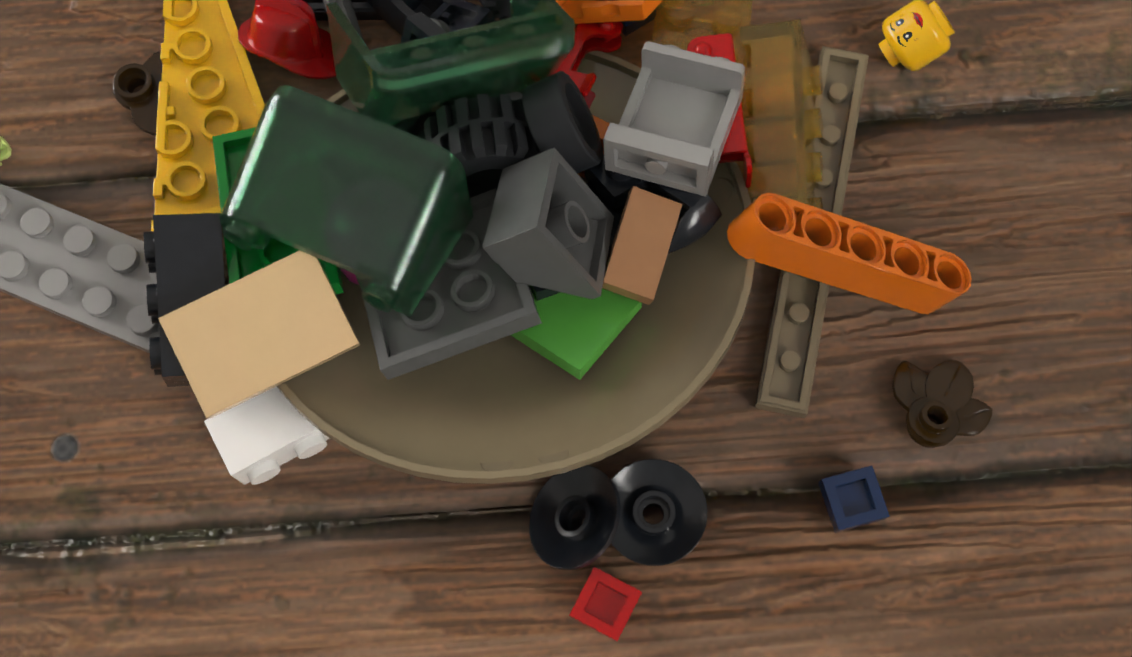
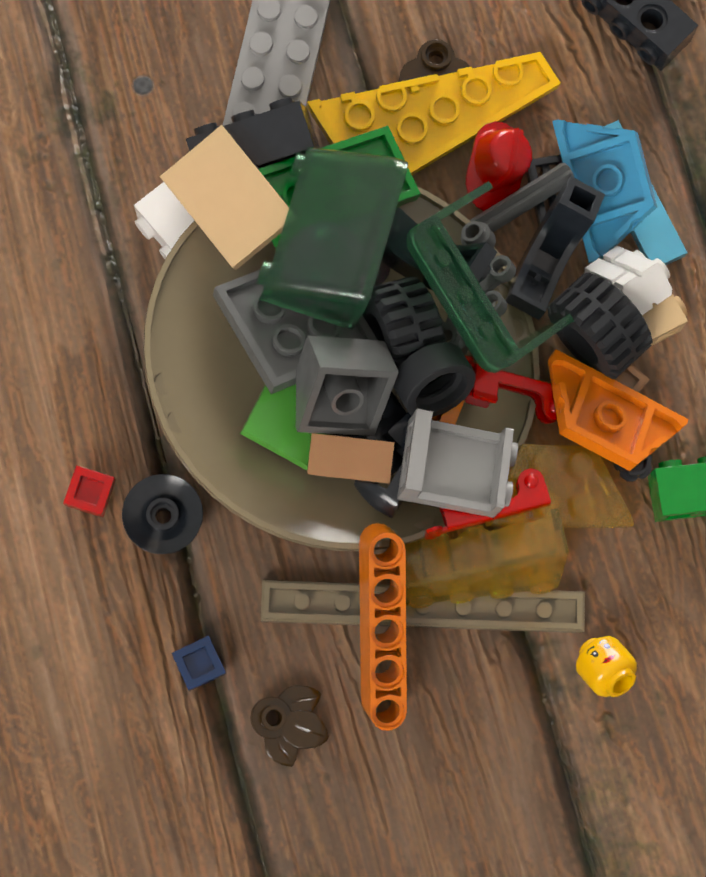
camera: 70 degrees right, 5 degrees up
(558, 517) = (144, 457): black dish -> none

